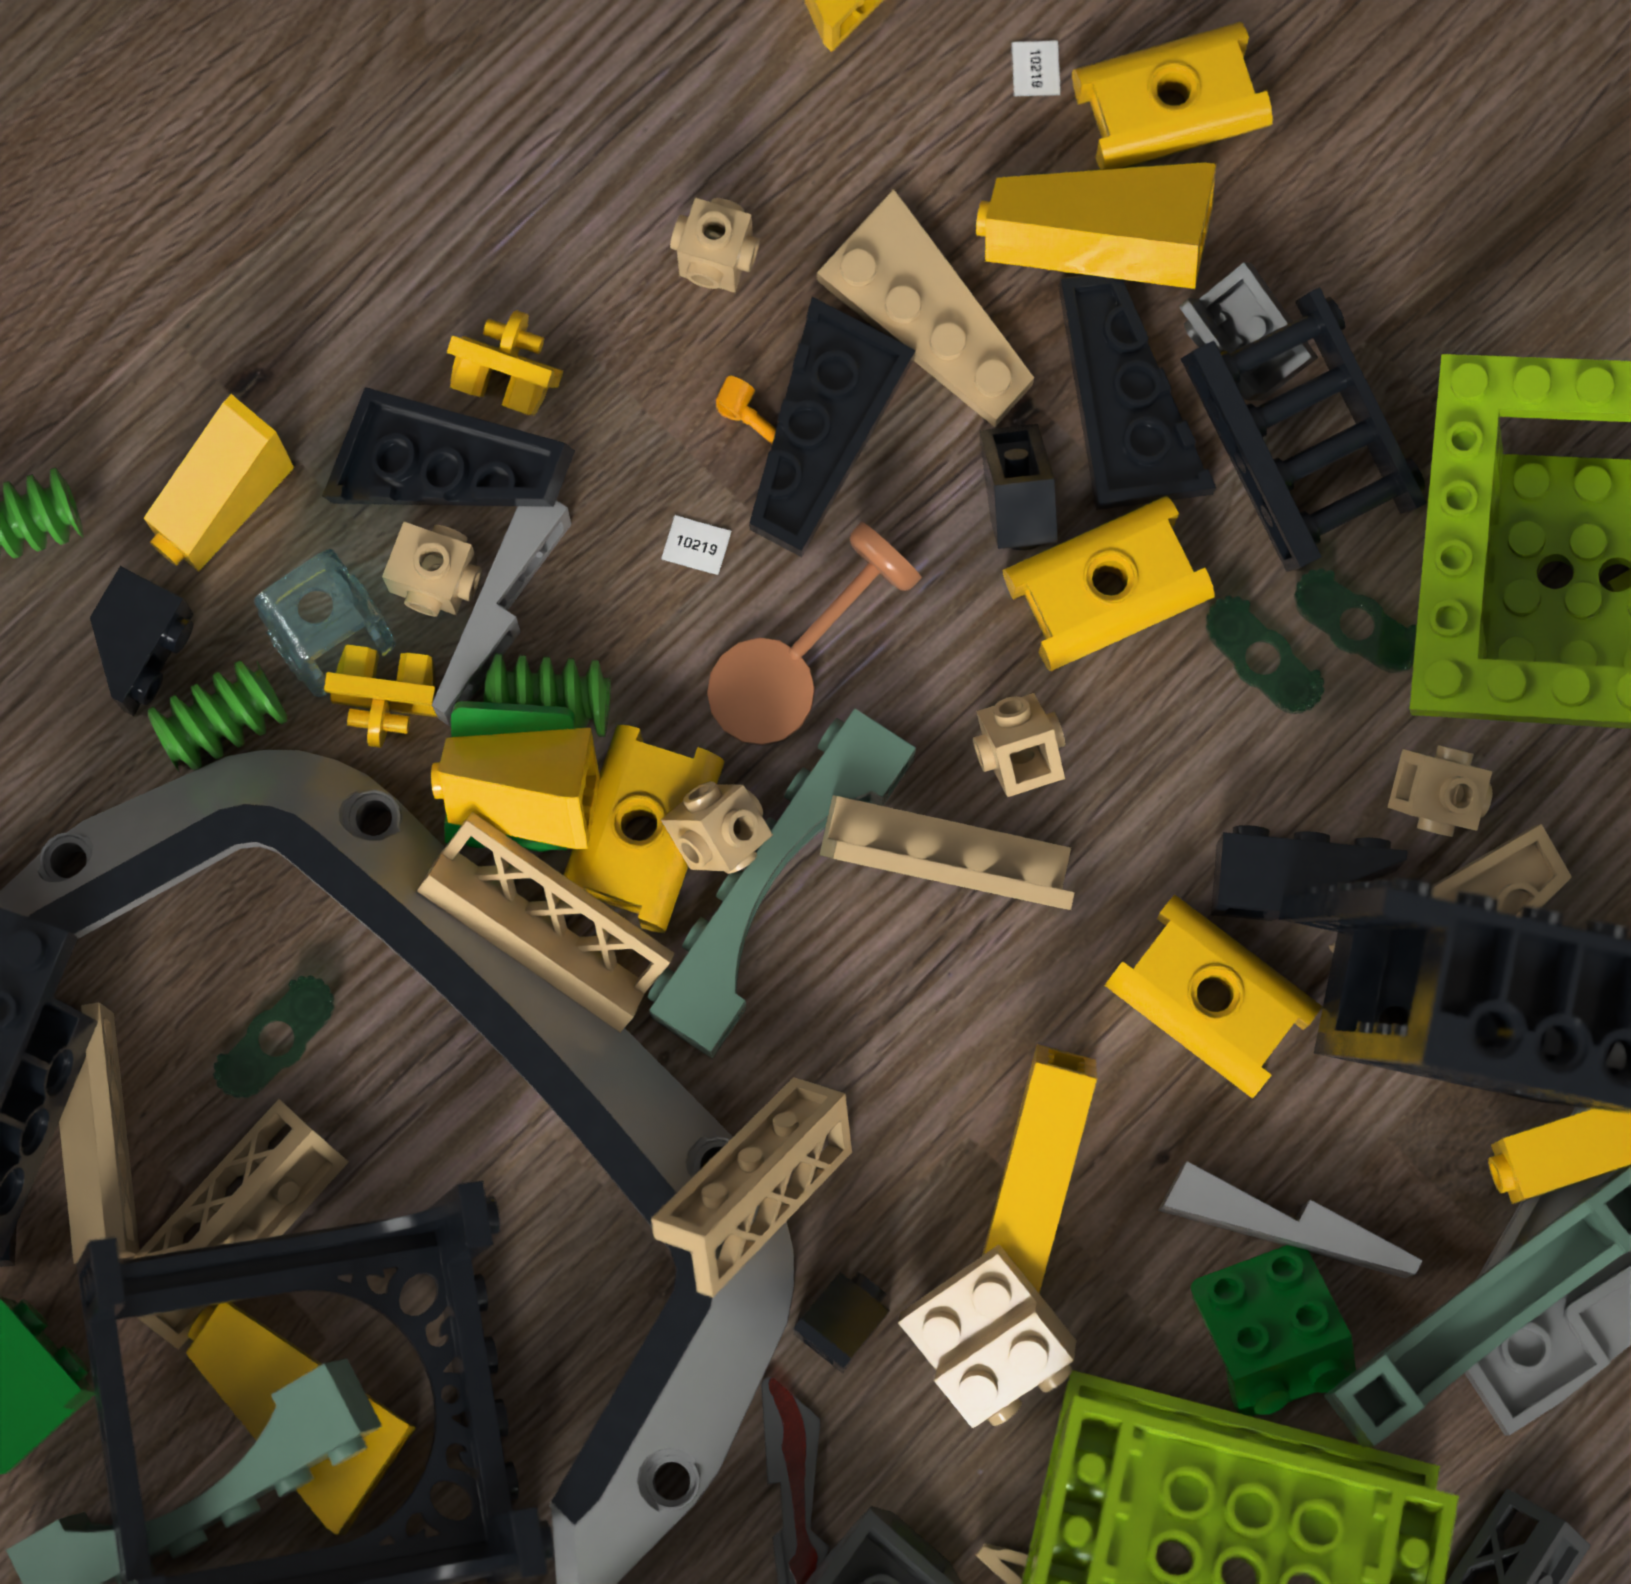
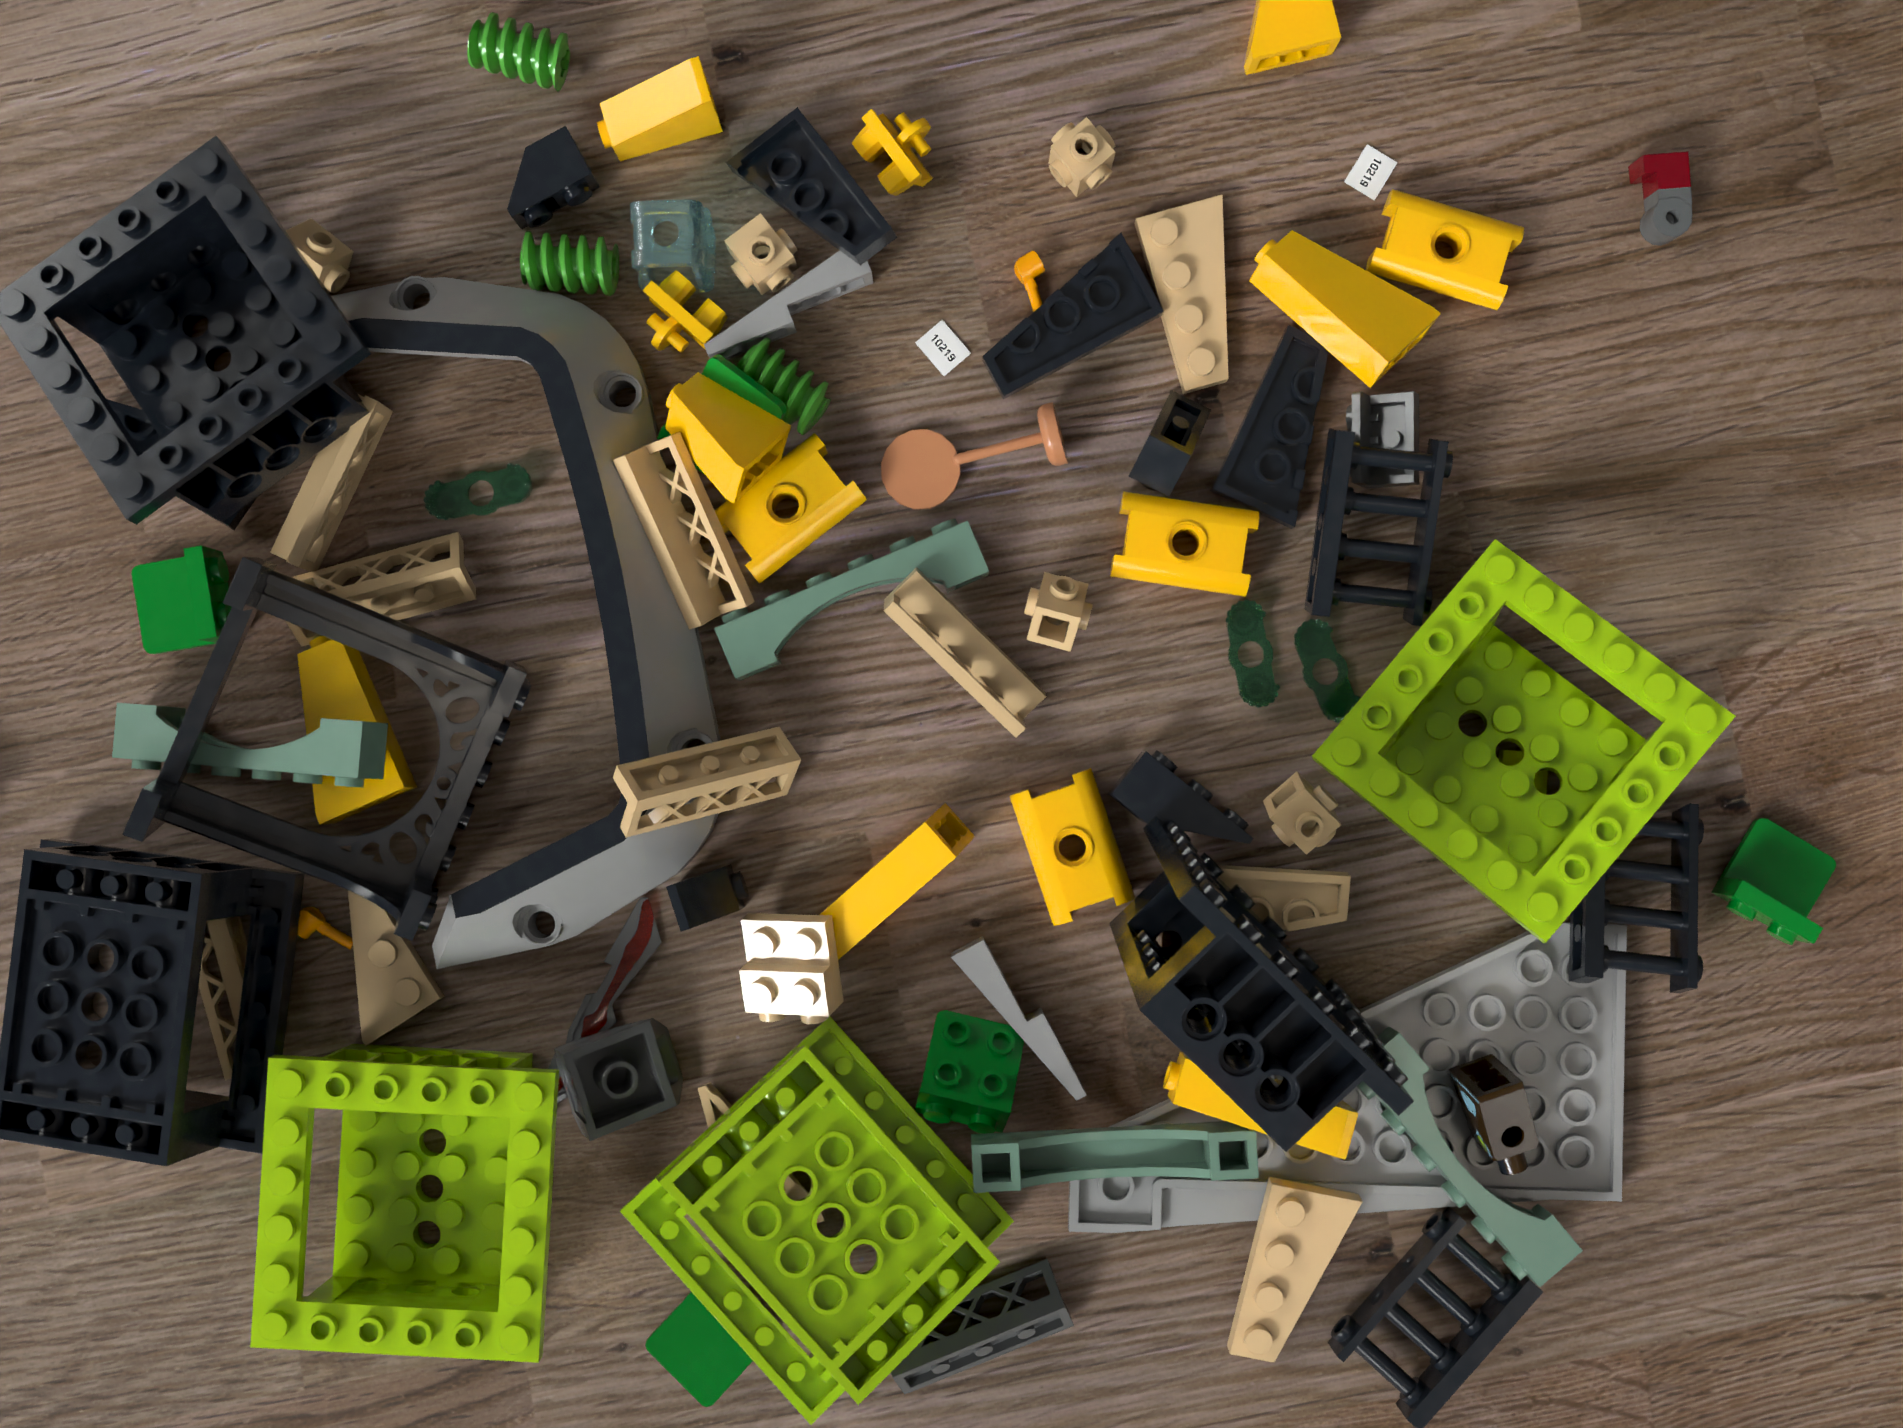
camera: 35 degrees right, 10 degrees up
(718, 827) = (830, 541): tan brick -> none

